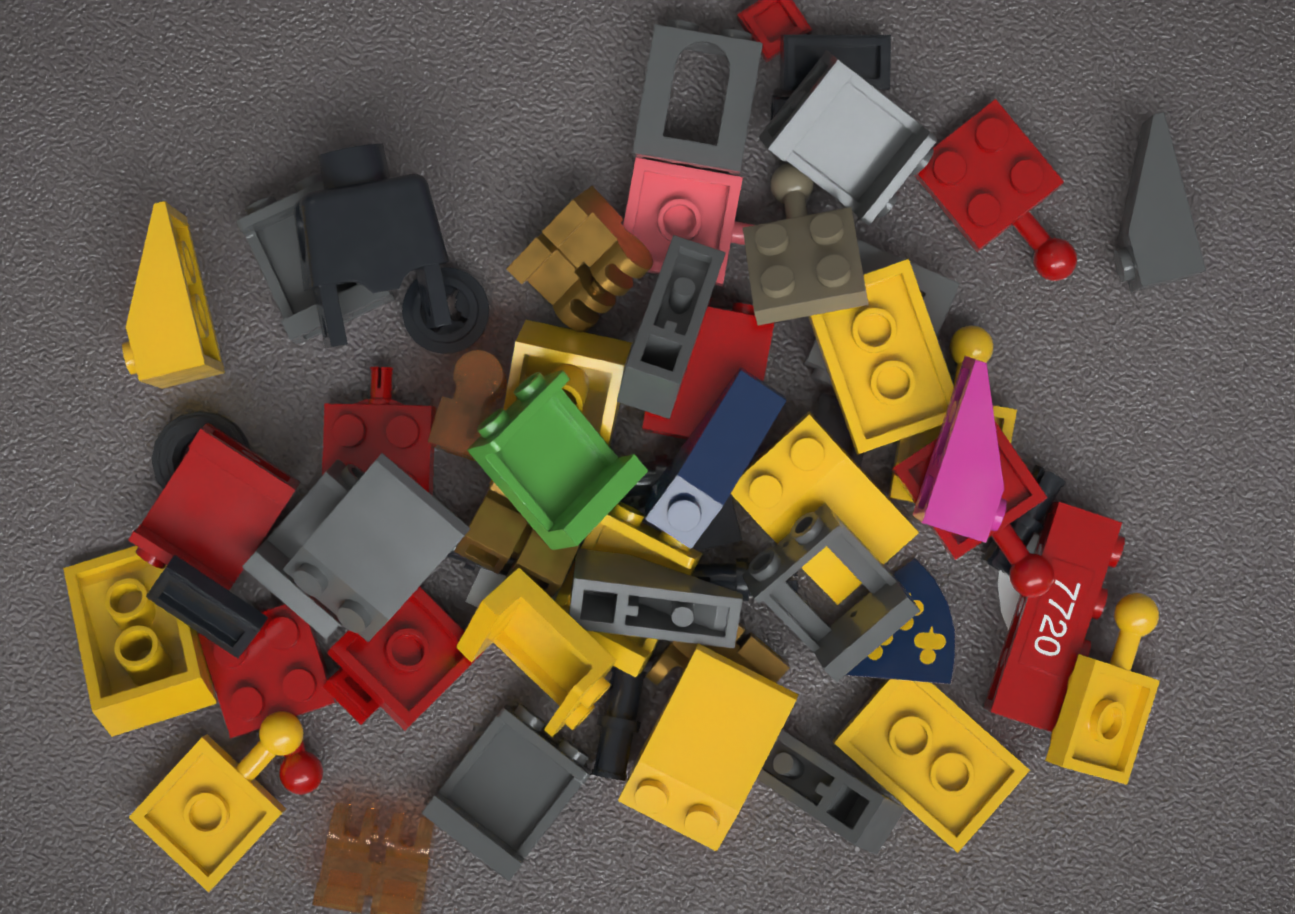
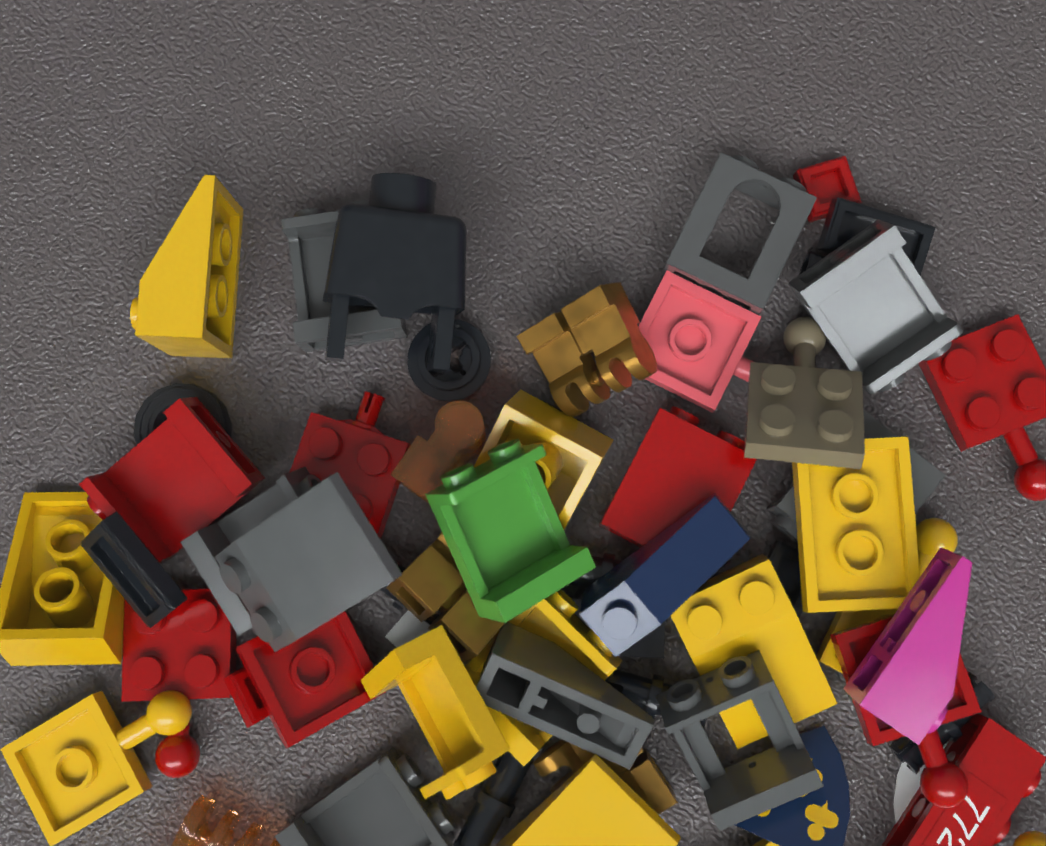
camera: 25 degrees right, 5 degrees down
(670, 327) = (657, 436): dark grey slope -> none

